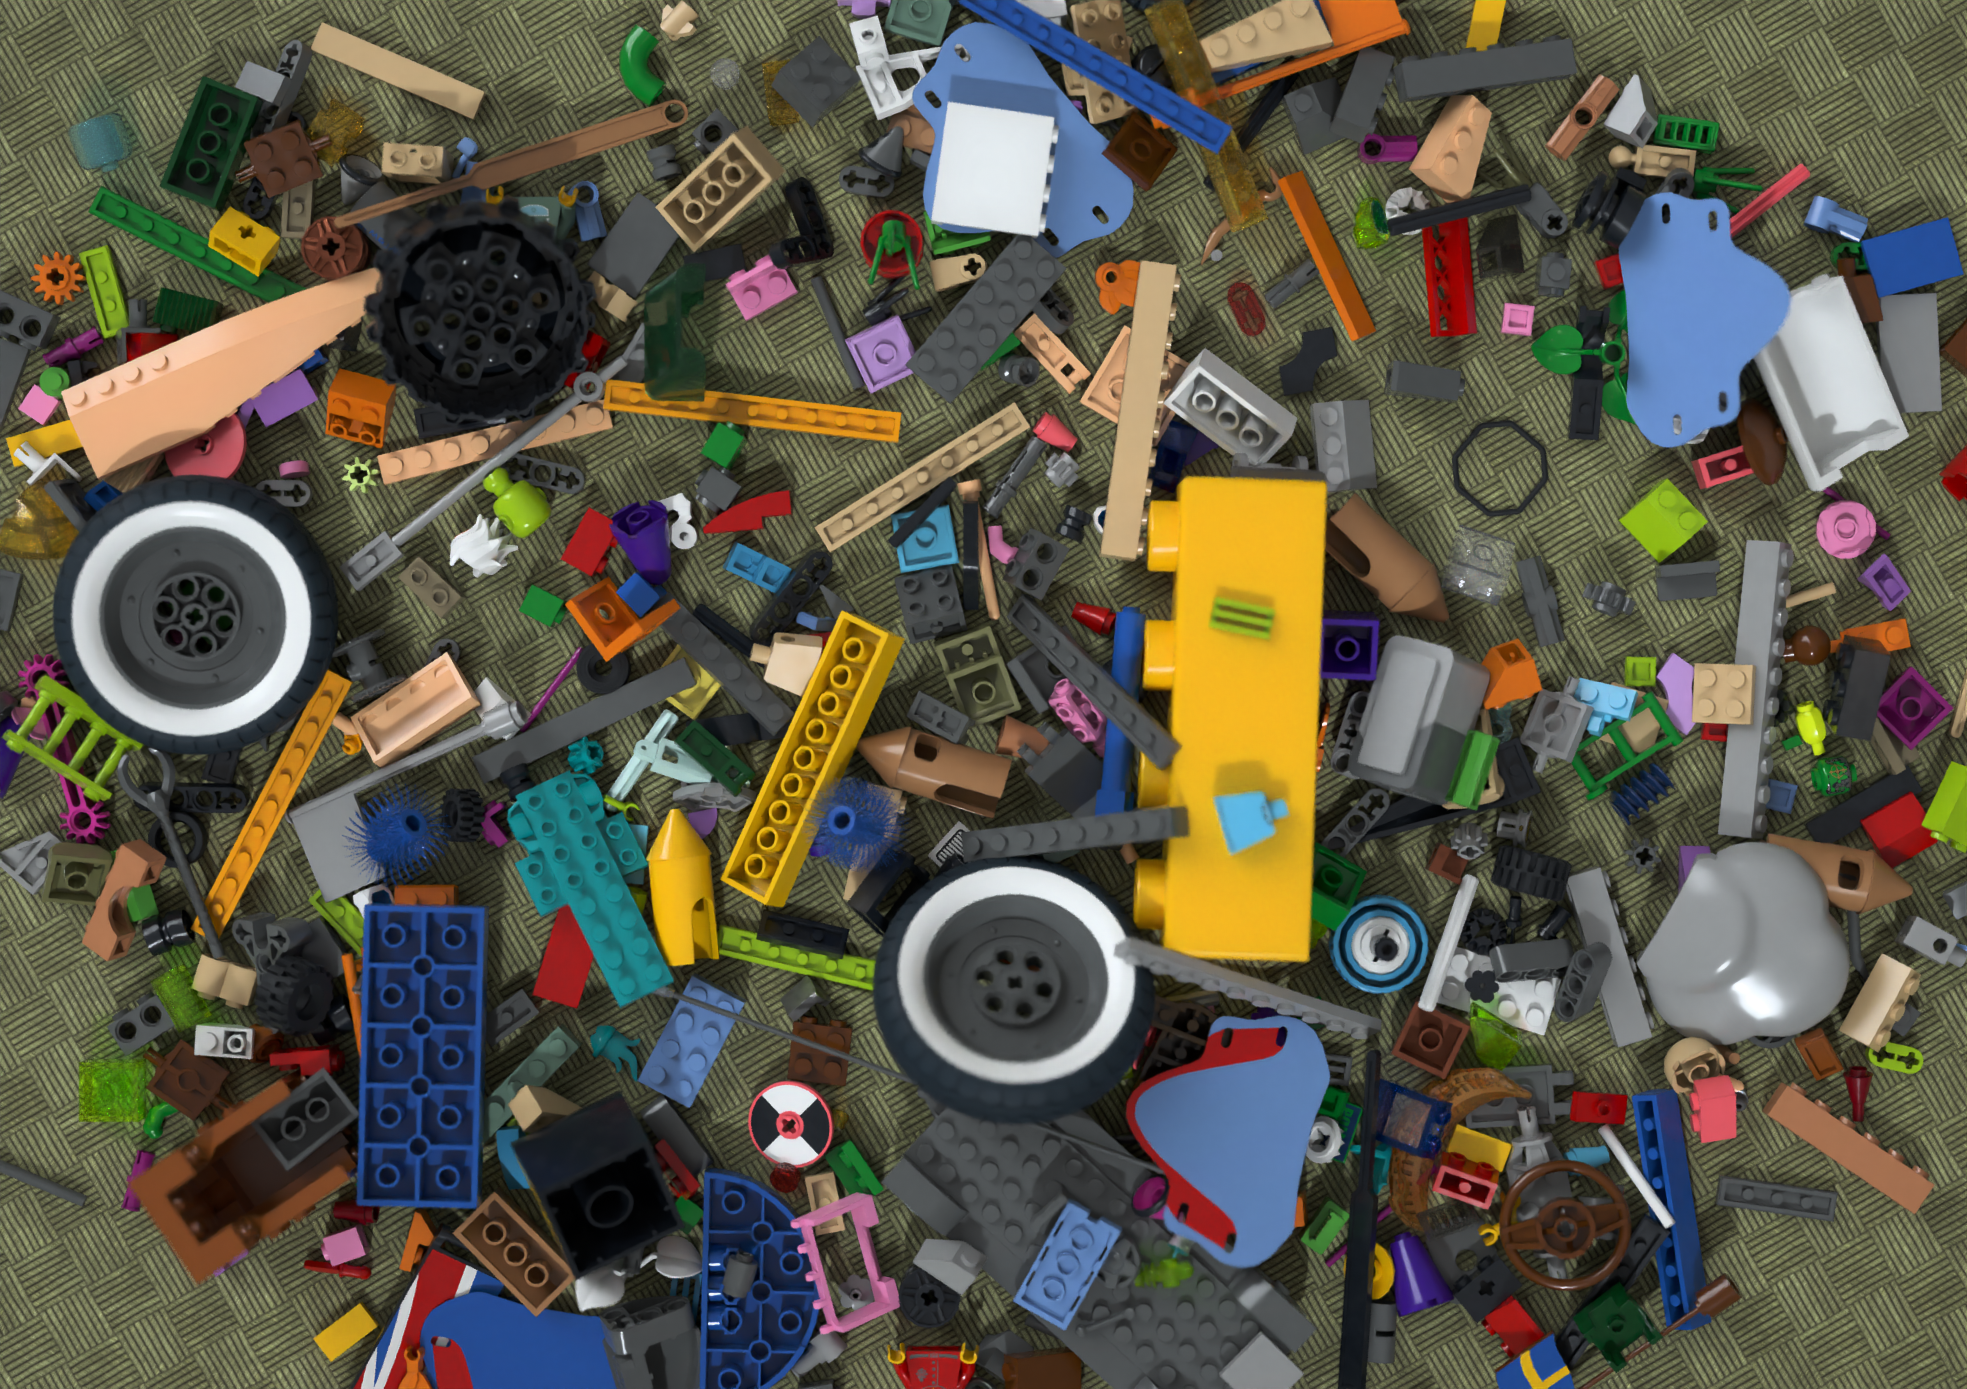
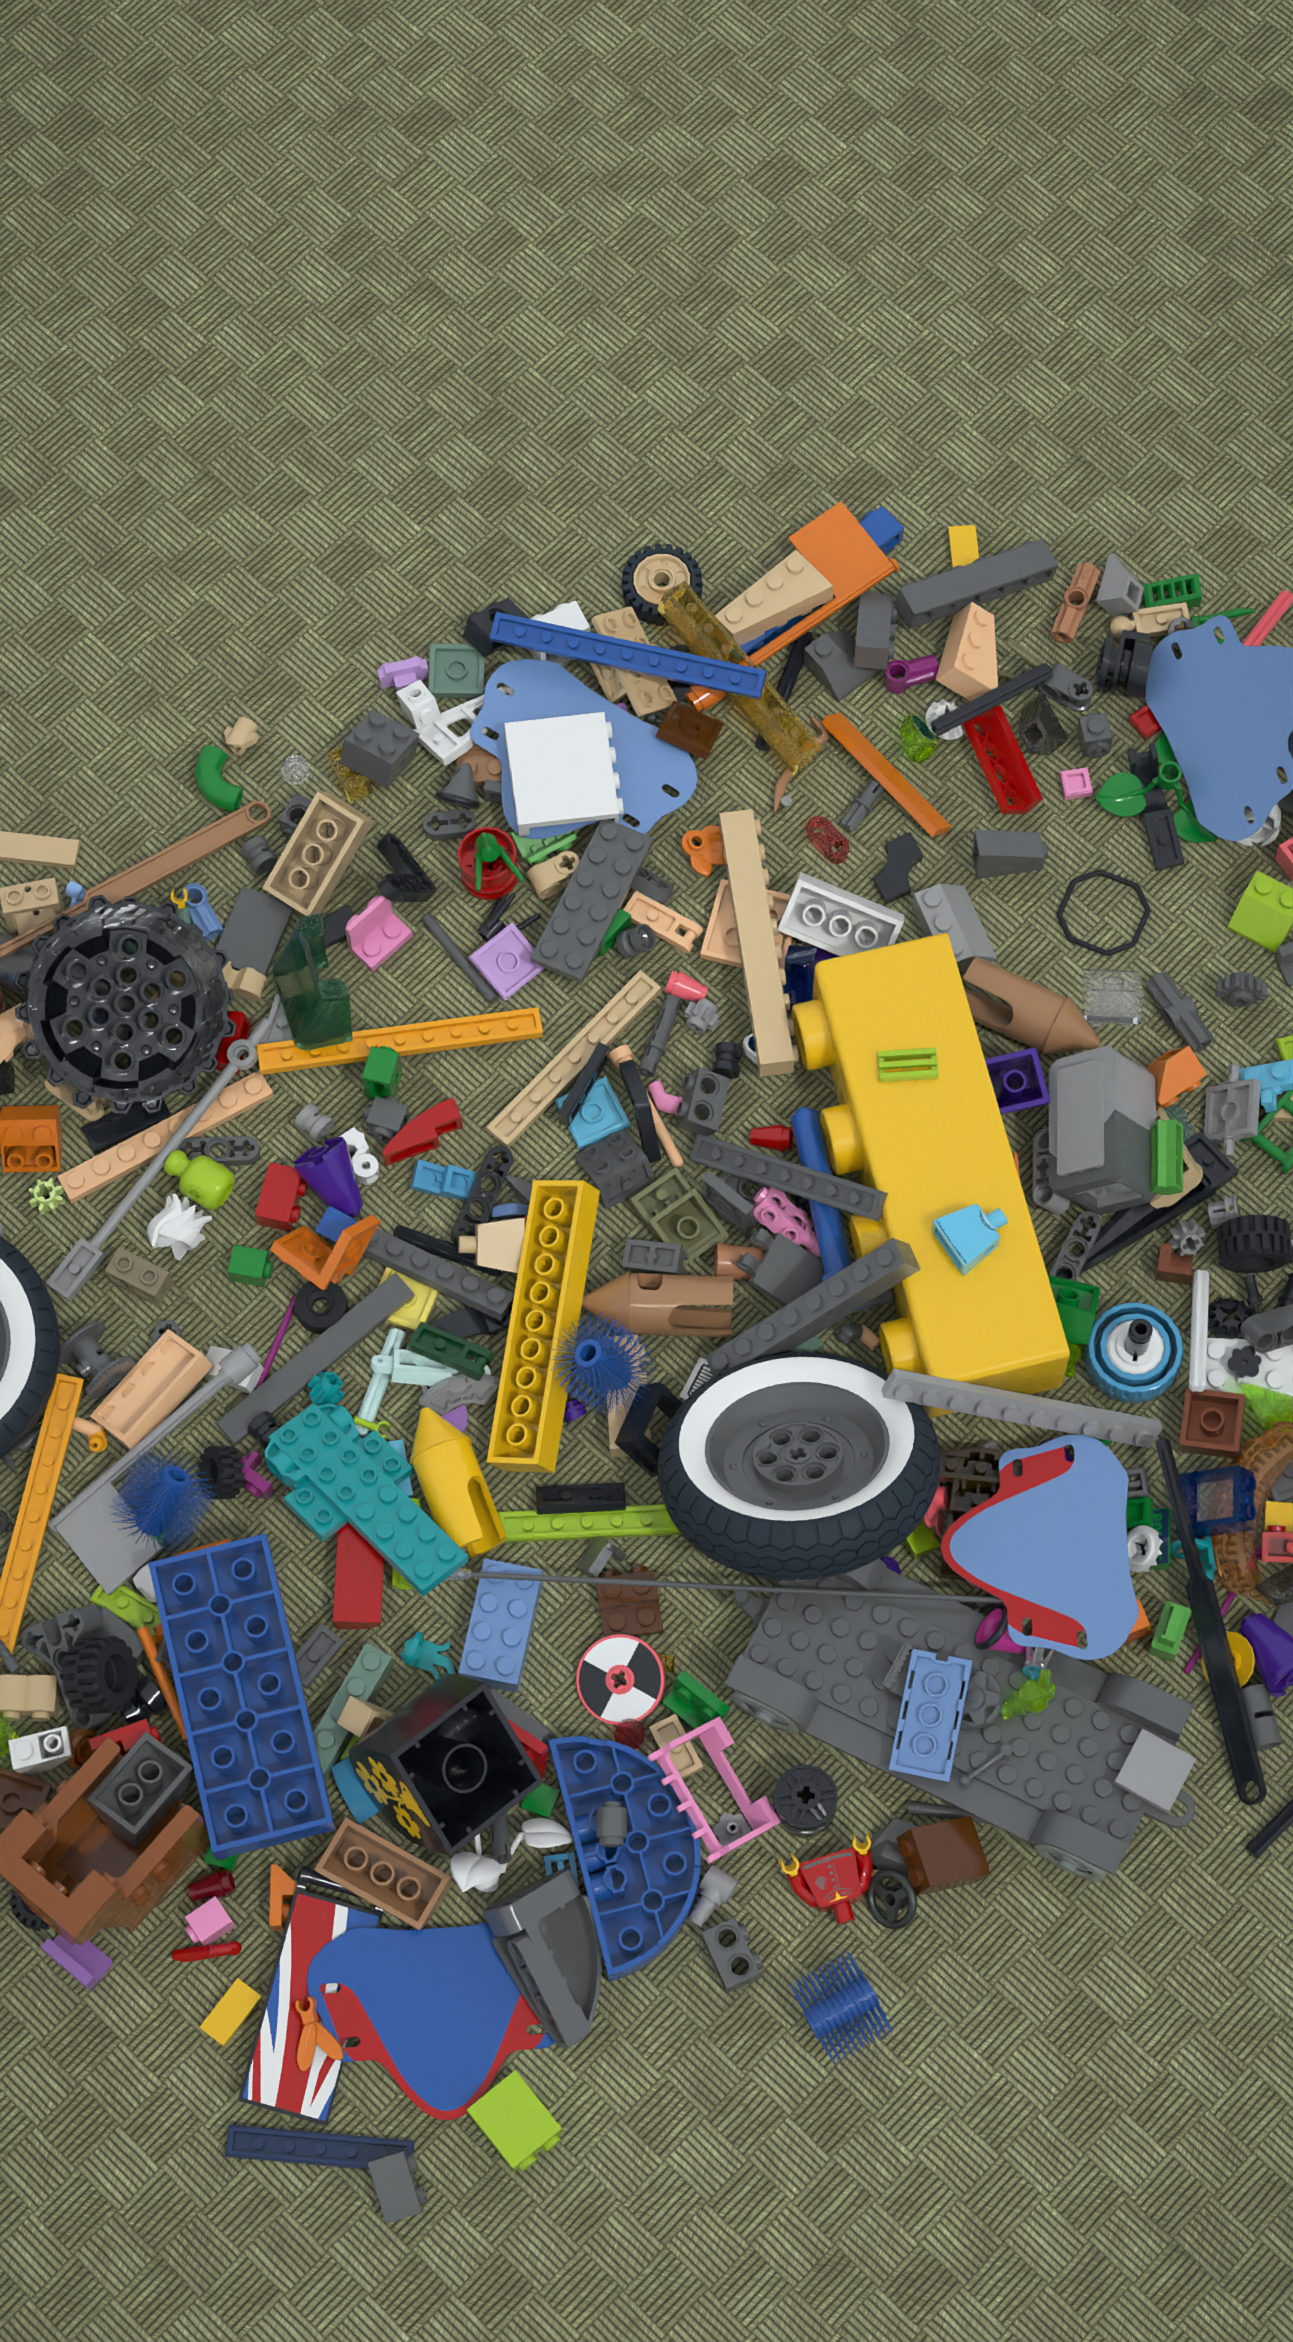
camera: 10 degrees left, 20 degrees down
(645, 472) = (315, 1123): none -> light grey wheel
(950, 1262) = (817, 1752): light grey slope -> none

